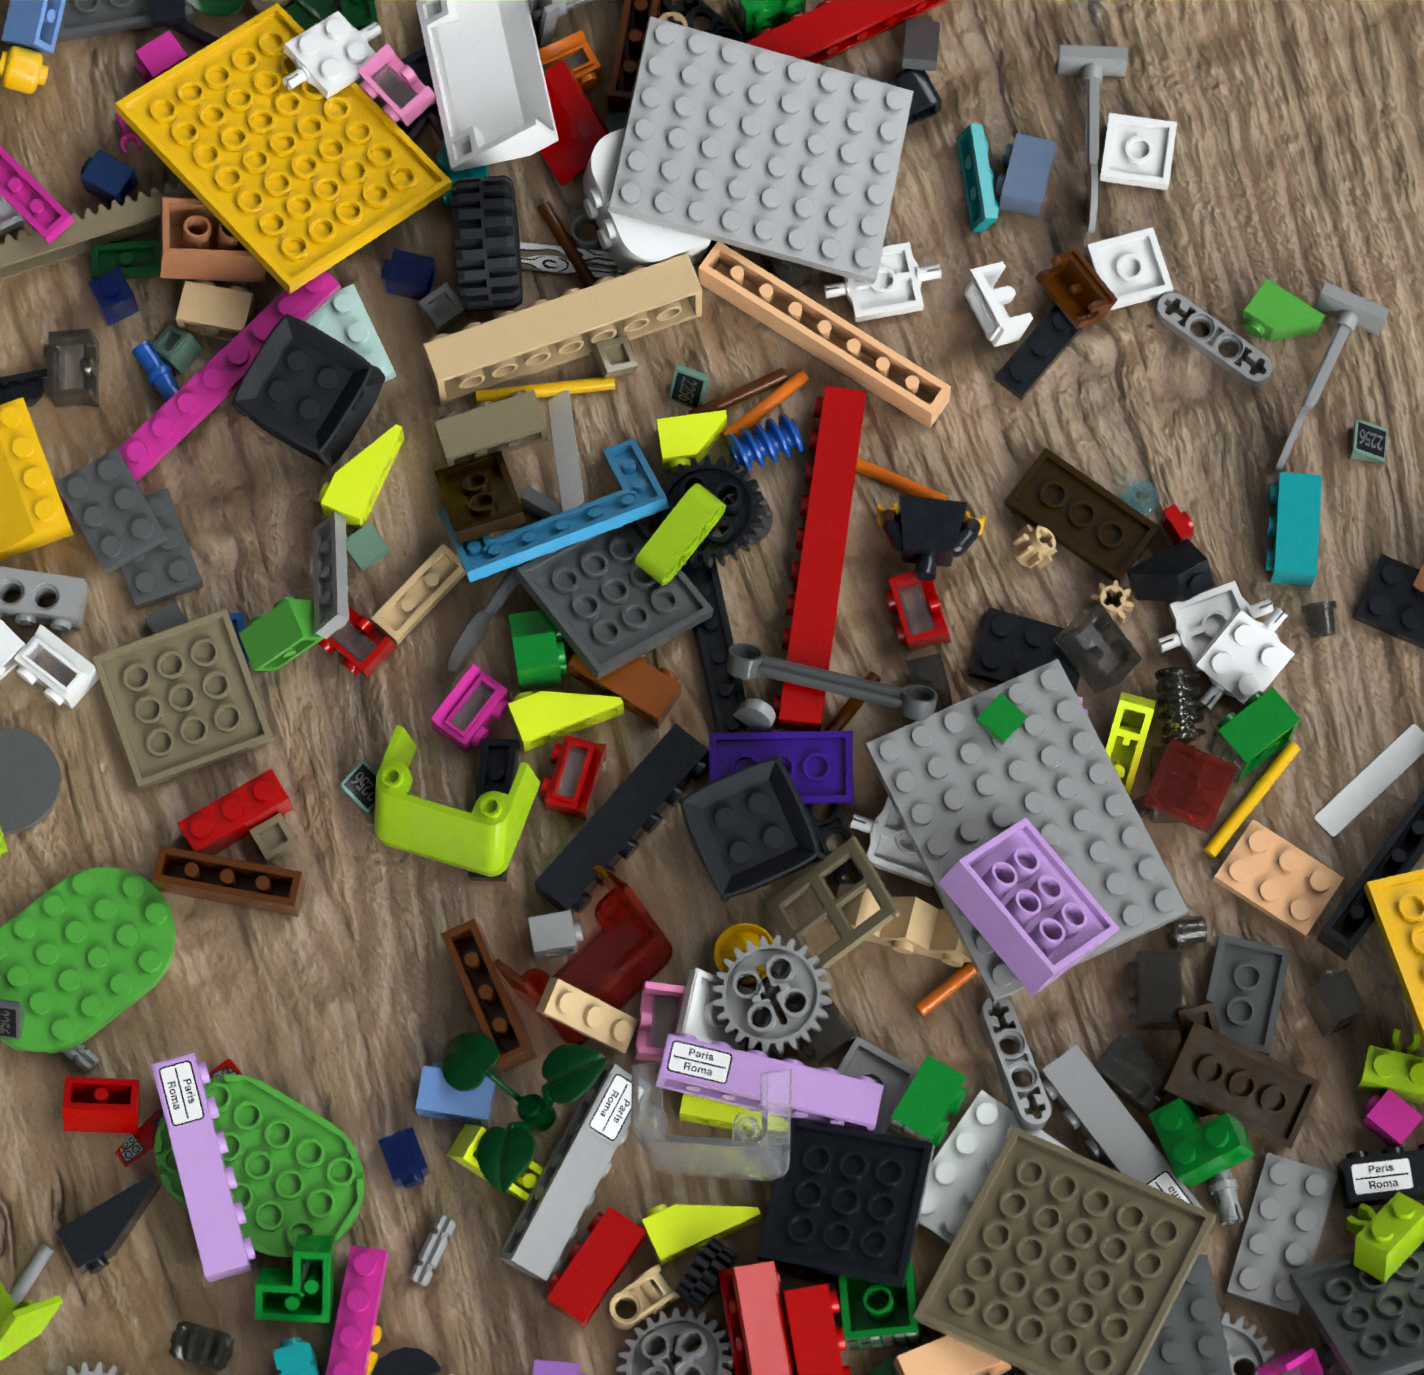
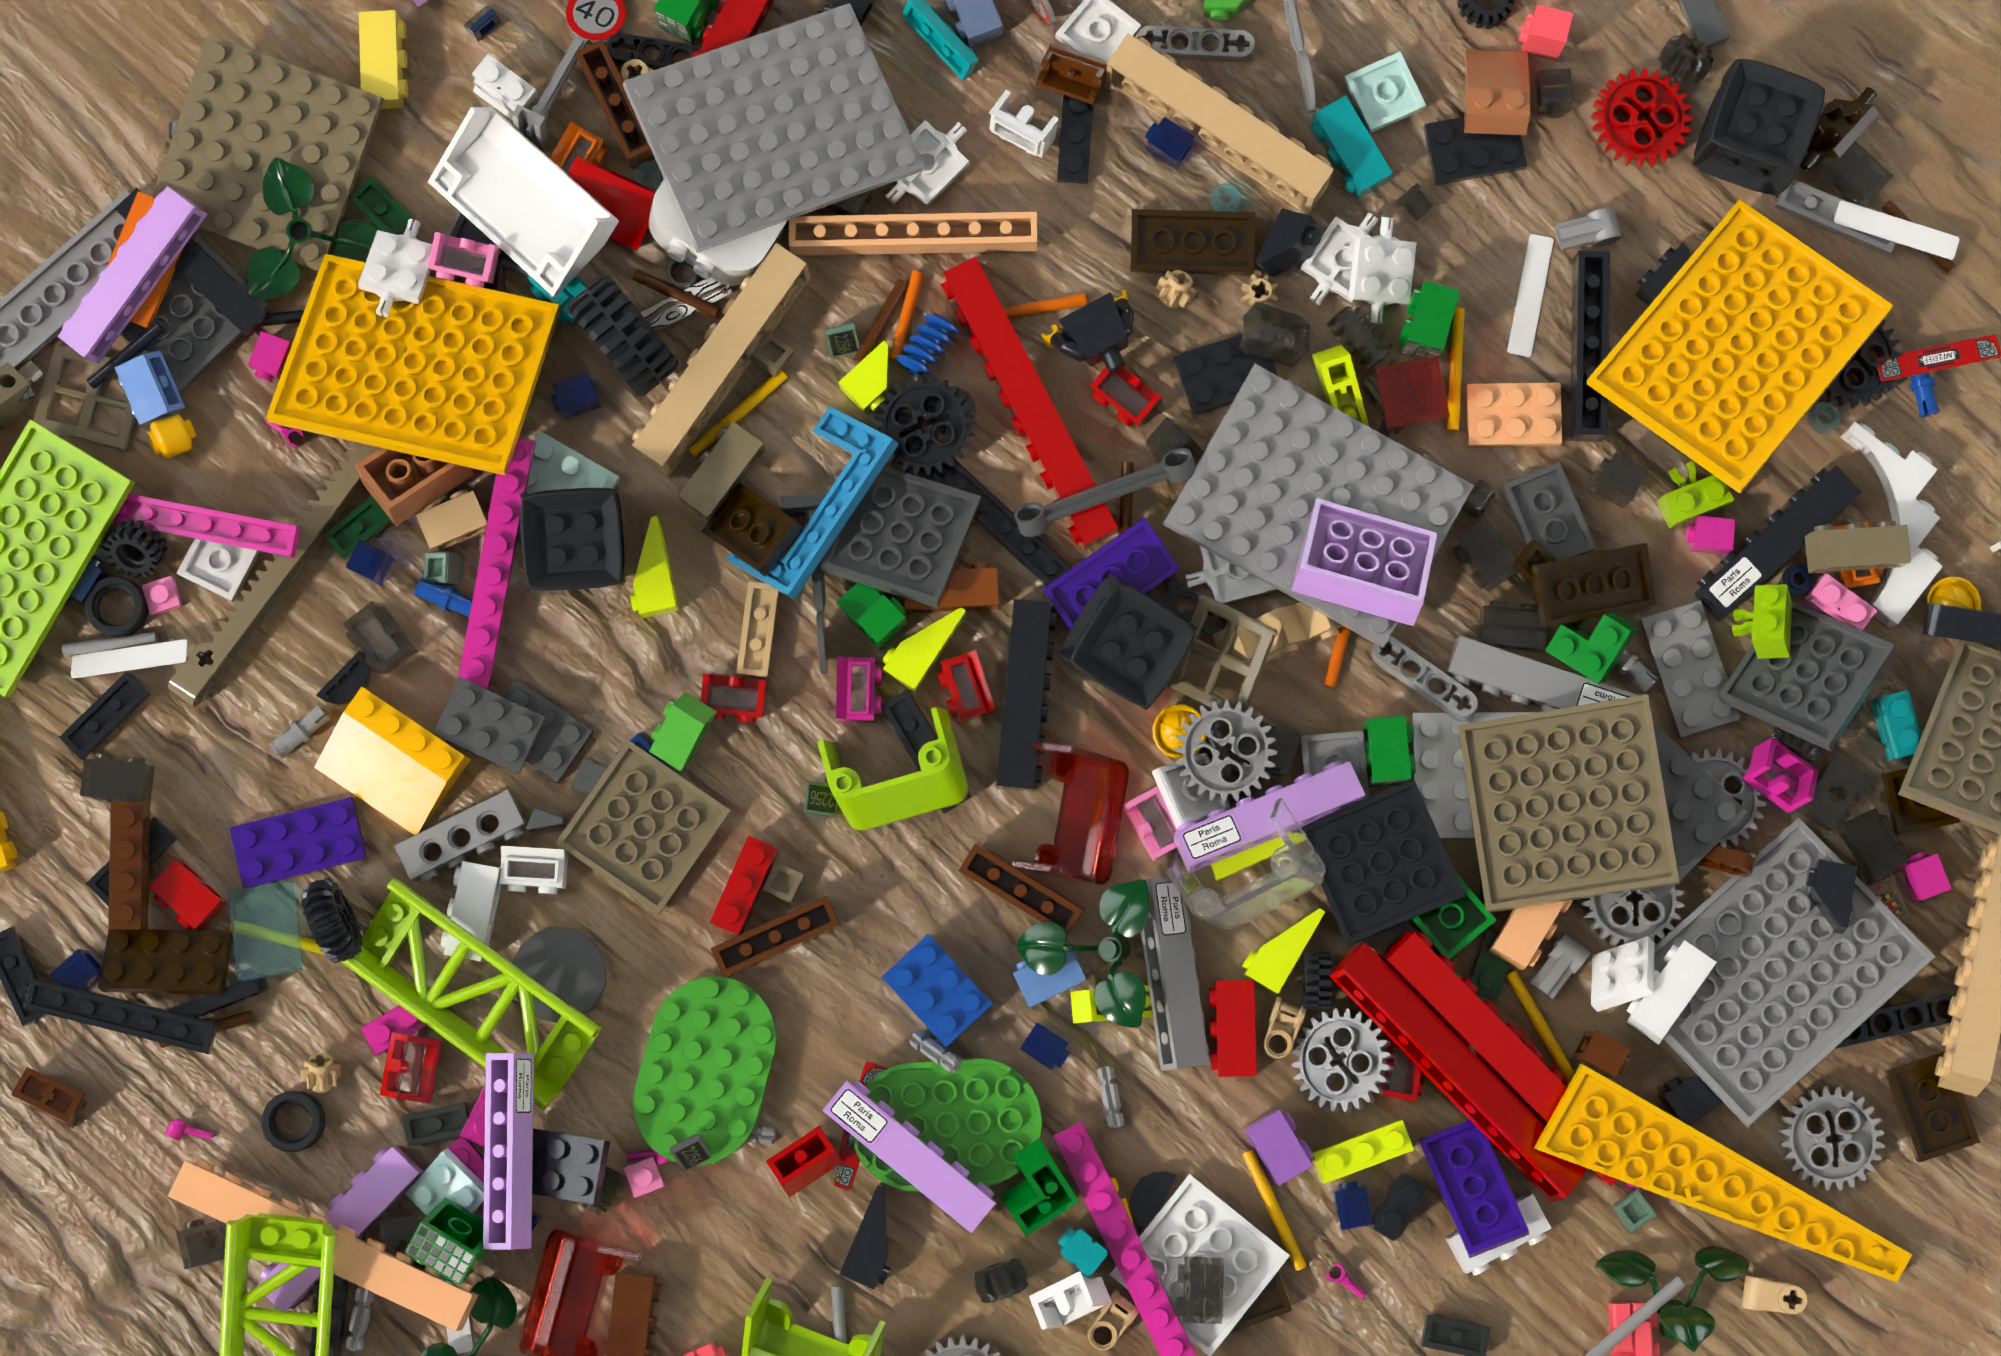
camera: 30 degrees left, 10 degrees up
(97, 631) = (544, 820): none -> dark grey slope
(108, 178) = (298, 475): dark blue brick -> none
(298, 1090) = (935, 1051): none -> light grey axle
(330, 575) = (687, 663): light grey plate -> none
(341, 1035) = (937, 990): none -> blue brick
(366, 547) = (692, 621): sand green tile -> none
(442, 307) = (618, 403): light grey plate -> none
(554, 935) = (1035, 812): light grey brick -> none
(565, 451) = (789, 451): white sticker -> none
(587, 1015) = (1103, 856): tan plate -> none
(680, 534) = (920, 458): lime beam -> none
(756, 714) = (1065, 552): light grey tile -> none
(1001, 719) = (1249, 437): green tile -> none
(1124, 411) = (1169, 142): none -> clear blue brick
(1177, 524) = (1266, 202): red plate -> none
(1182, 423) = (1219, 123): none -> tan brick
(1363, 500) = (1384, 92): none -> light aqua plate
(1368, 442) = (1357, 46): slope -> none

